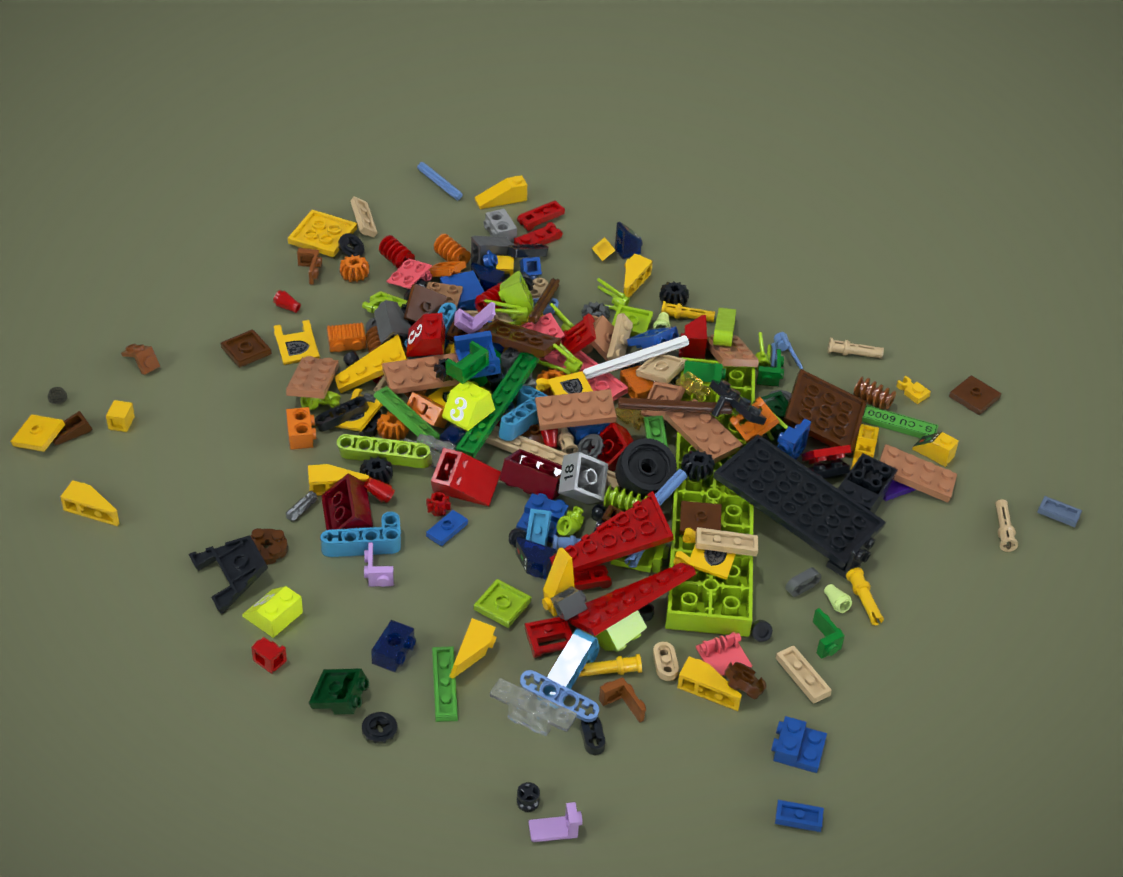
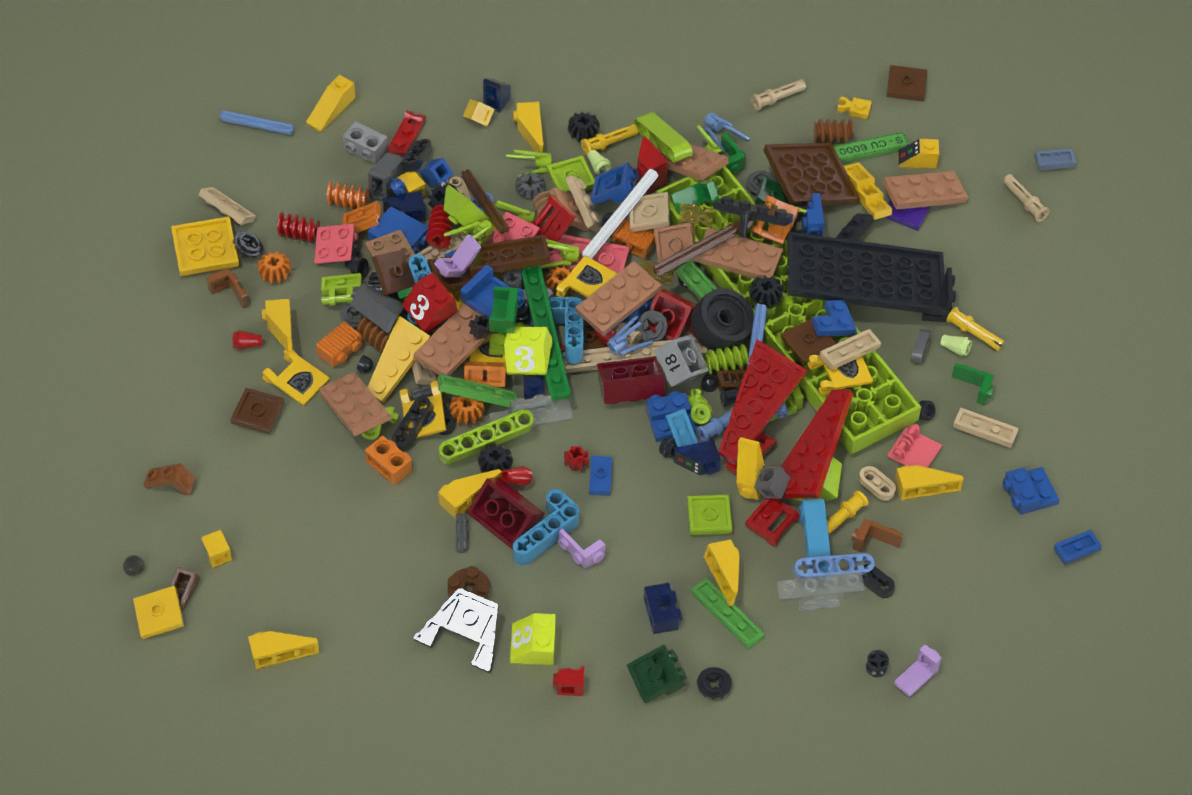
camera: 35 degrees left, 10 degrees up
(321, 299) = (279, 321): none -> yellow slope
(464, 477) = (578, 420): red slope -> none
(540, 215) = (388, 107): red plate -> none
(548, 442) = (618, 343): none -> medium blue plant
(736, 519) = (837, 322): none -> blue plate
(743, 678) = (952, 462): reddish brown plate -> none
(828, 454) = (845, 214): red plate -> none
(868, 482) = (900, 222): black slope -> none

